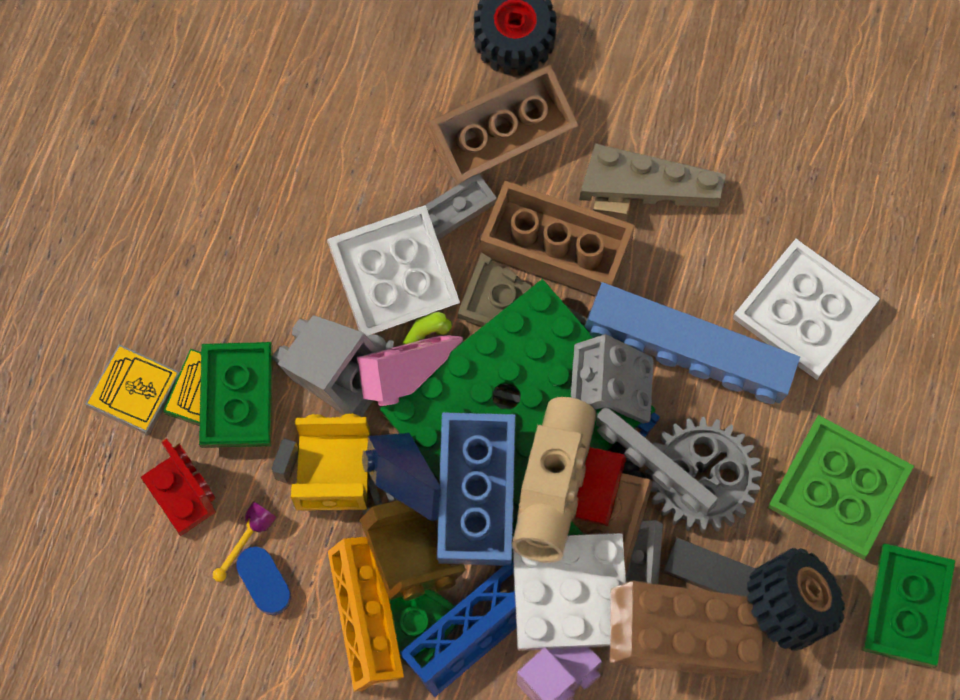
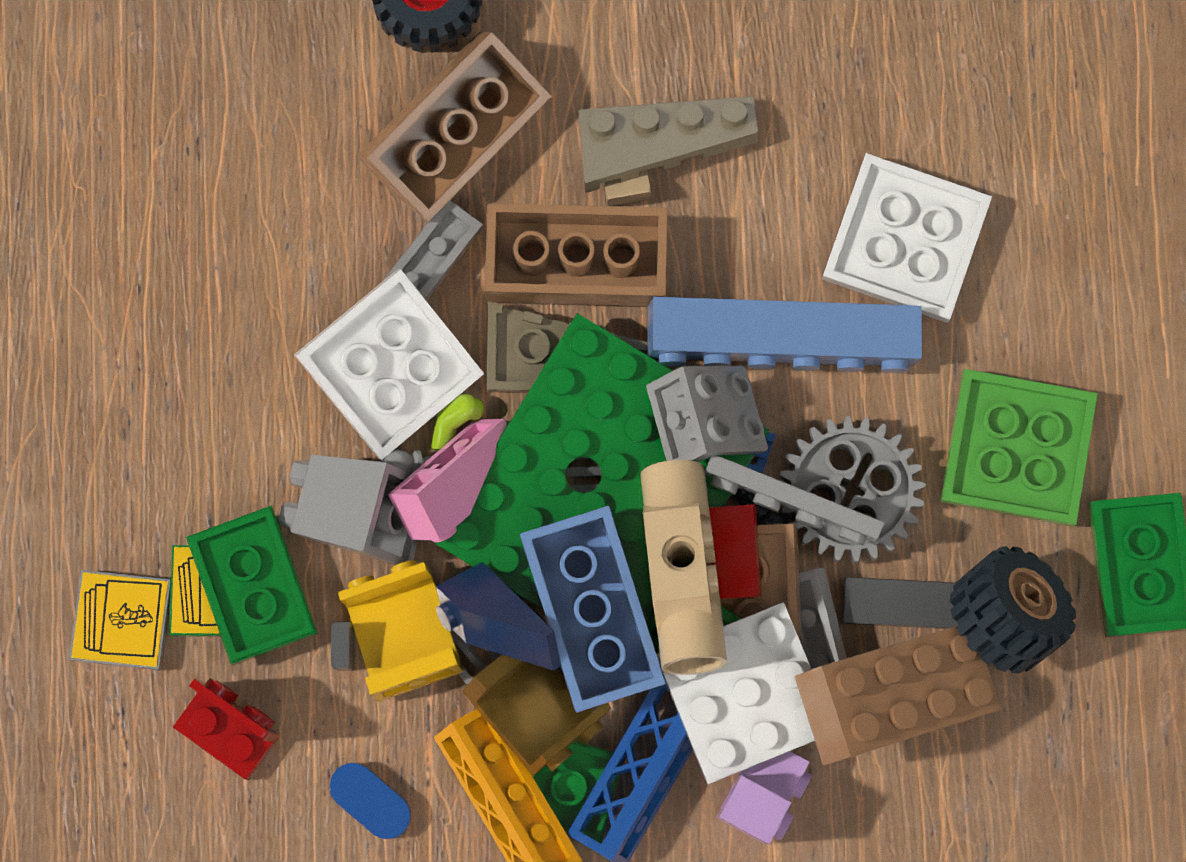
camera: 20 degrees left, 10 degrees up
(257, 520) = (335, 731): hinge -> none

